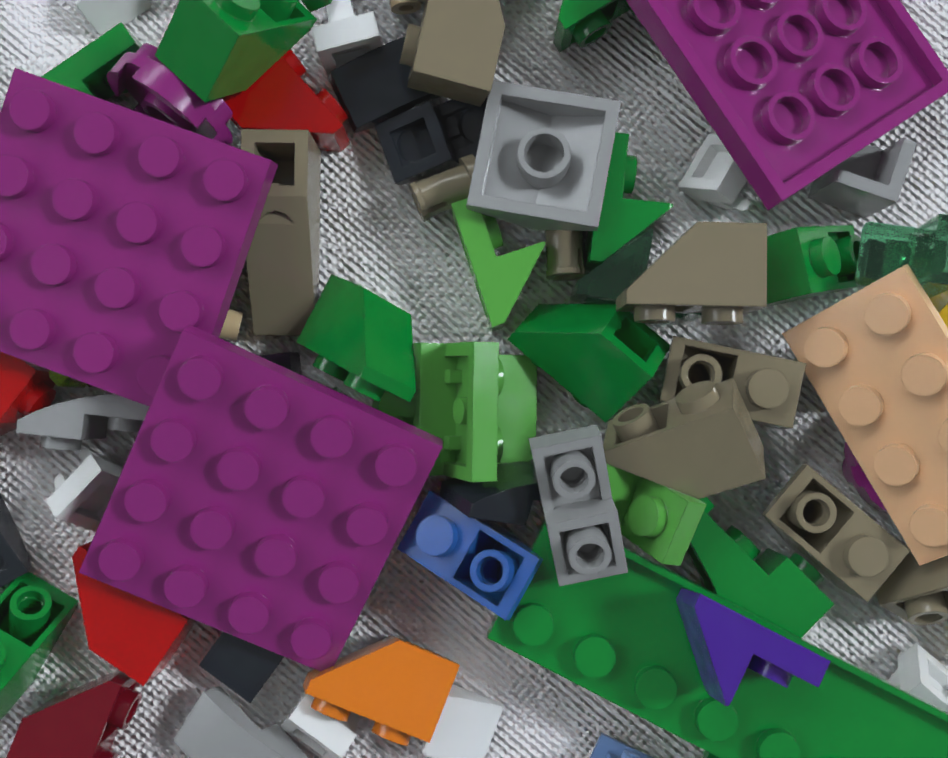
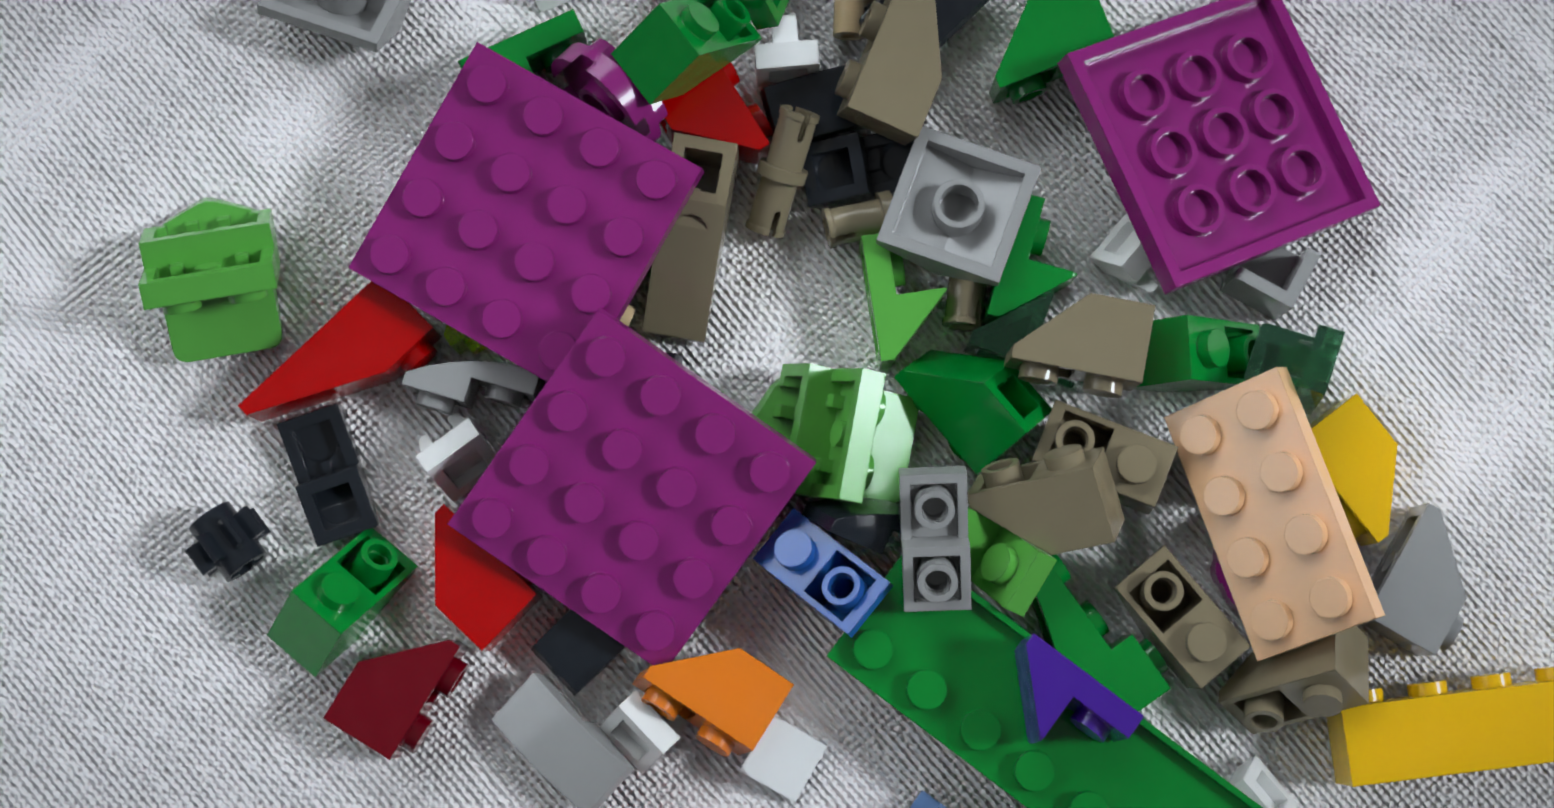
camera: 10 degrees right, 5 degrees down
(361, 340) = (751, 351): green slope -> none
(362, 151) = (782, 171): none -> dark tan pin

